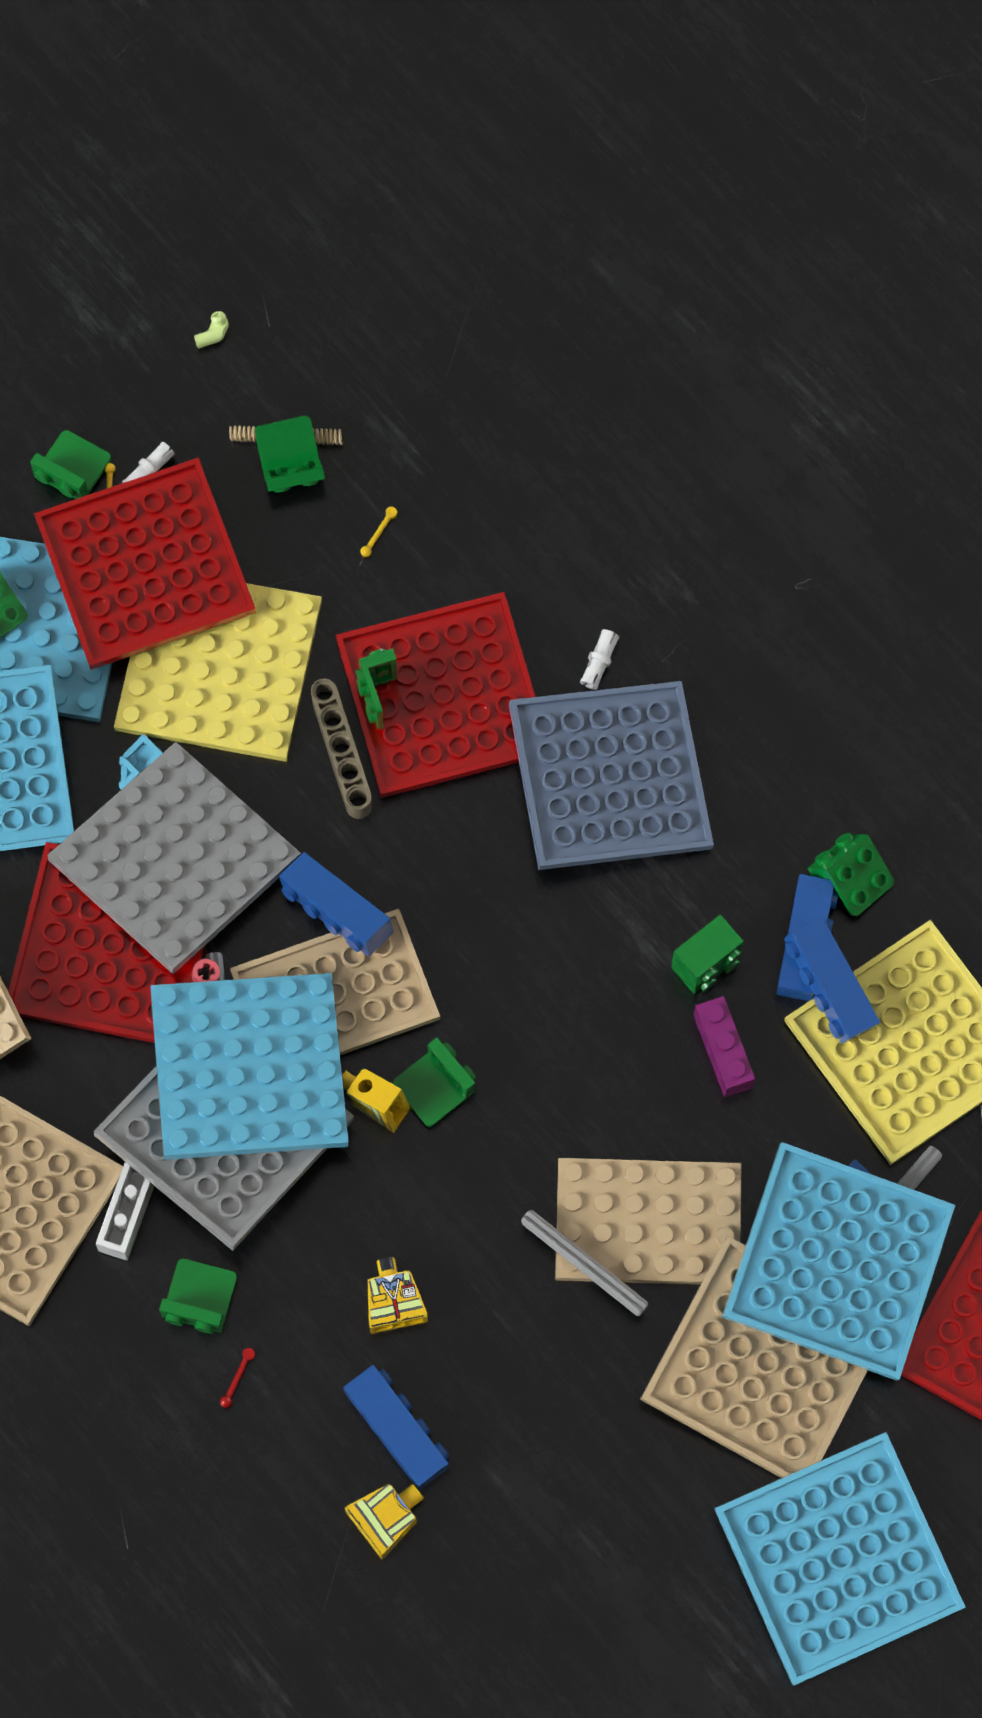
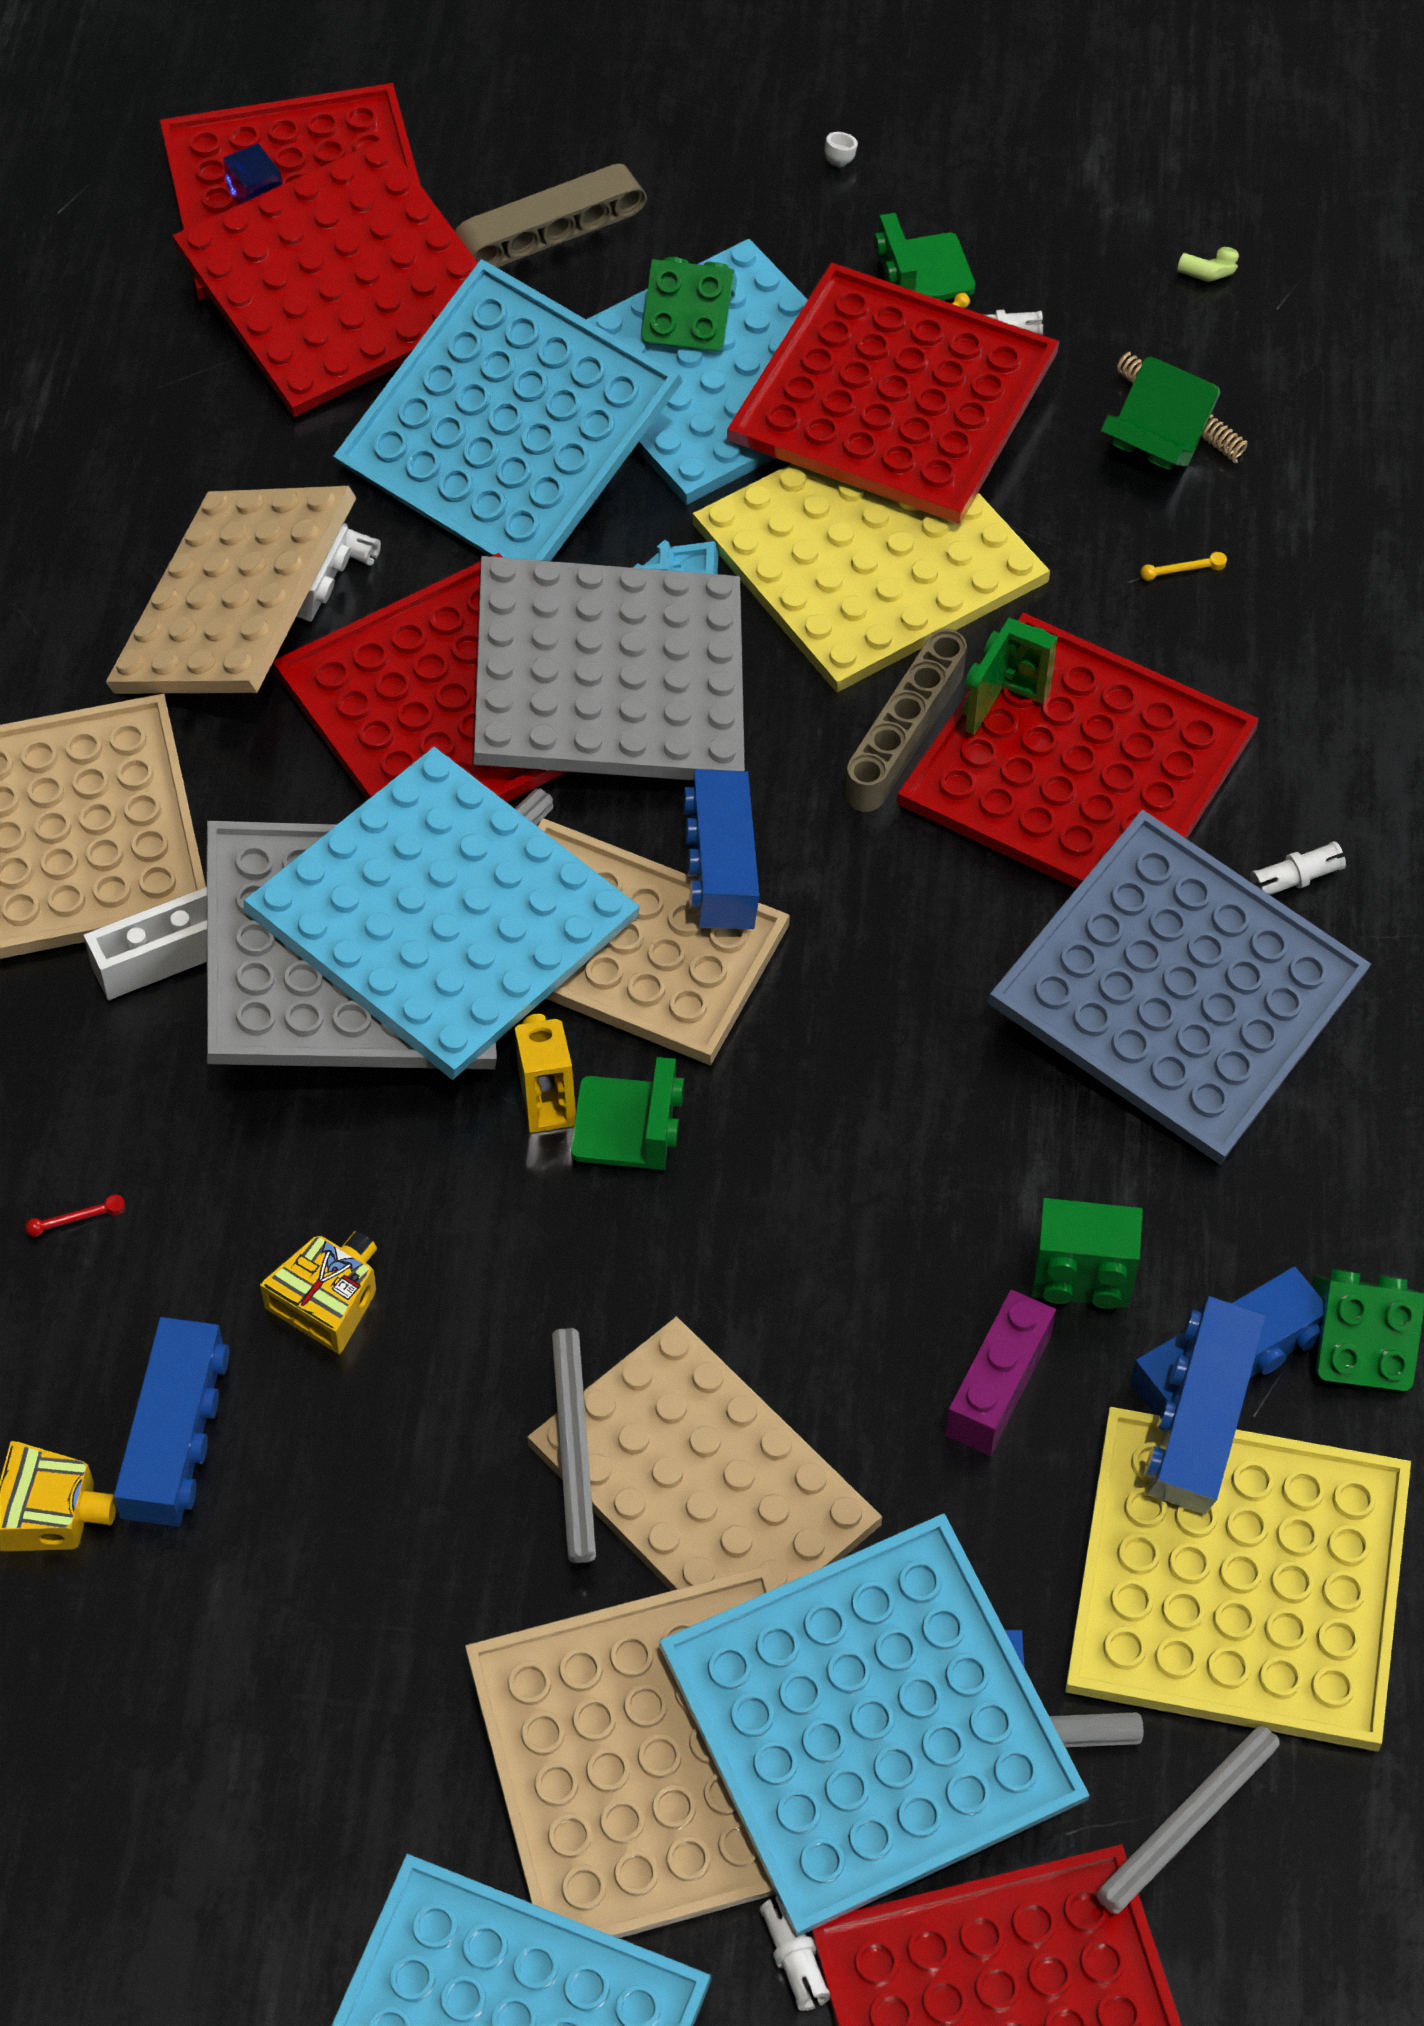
camera: 45 degrees right, 15 degrees down
(199, 1296) = (130, 1097): green bracket -> none
(207, 963) = (513, 784): coral bush -> none
(902, 1388) = (796, 1957): none -> white pin

